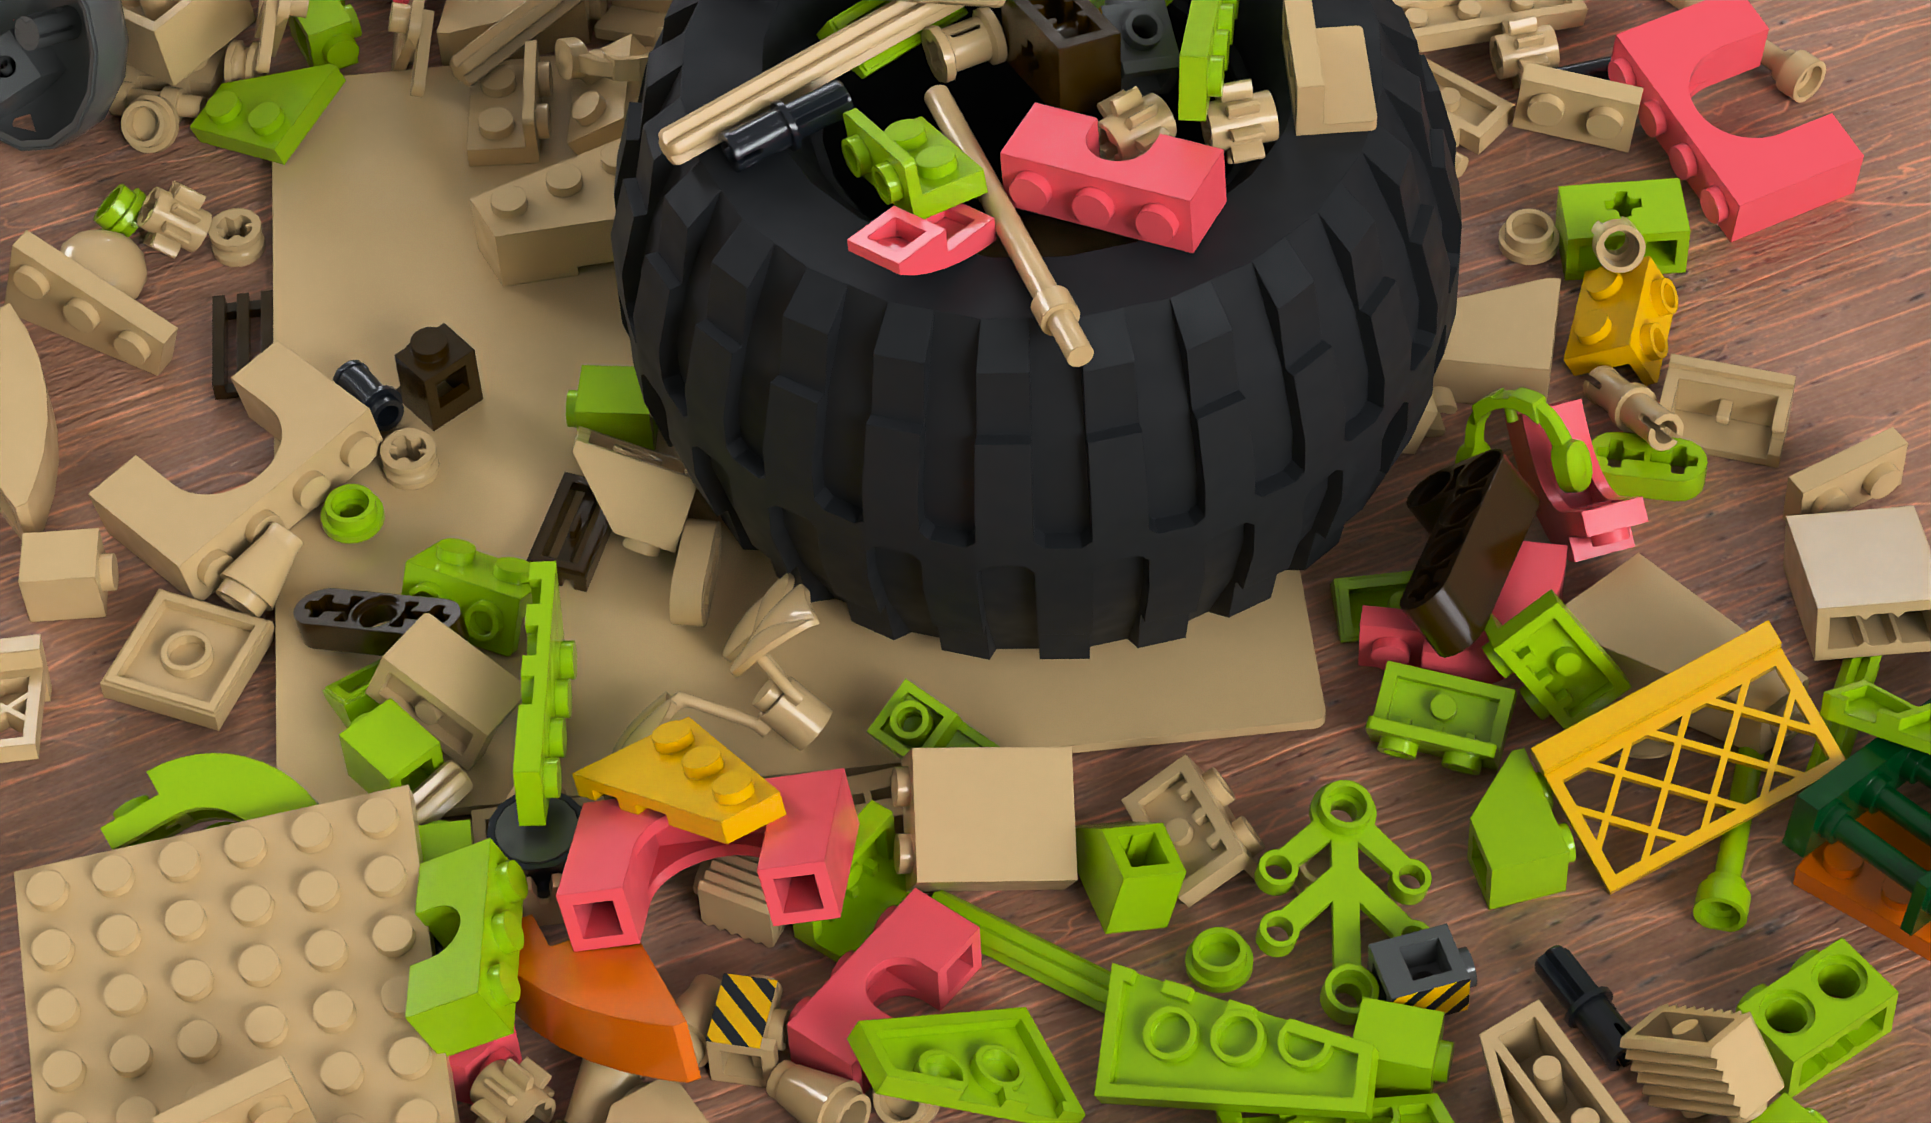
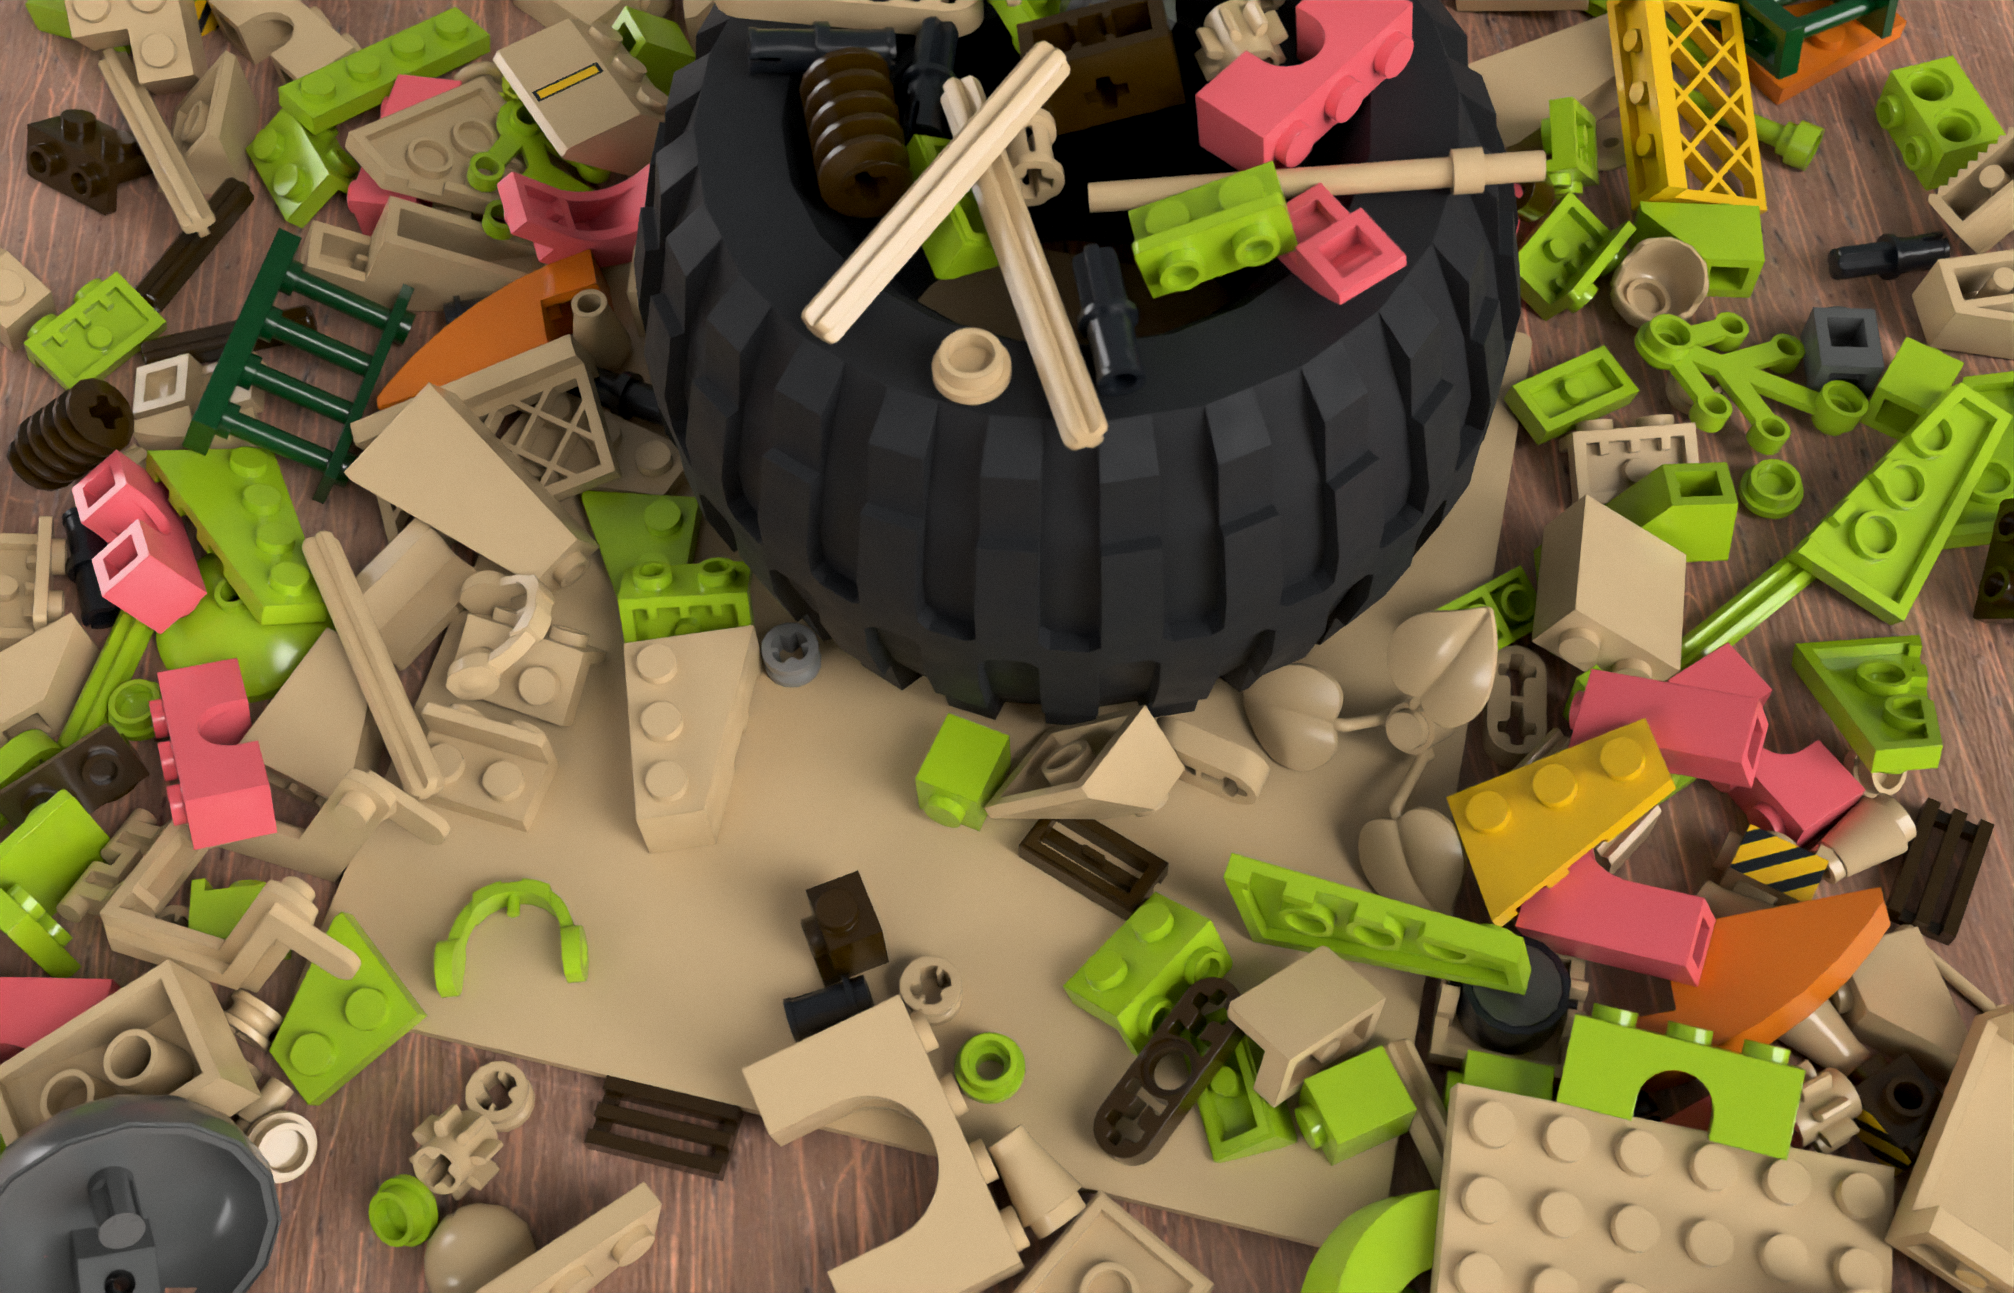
camera: 70 degrees left, 10 degrees up
(368, 221) = (451, 953): none -> lime piece
(707, 62) = (971, 367): none -> tan plate
(1256, 761) = (1570, 394): none -> lime plate
(1430, 801) = (1659, 279): none -> tan hair

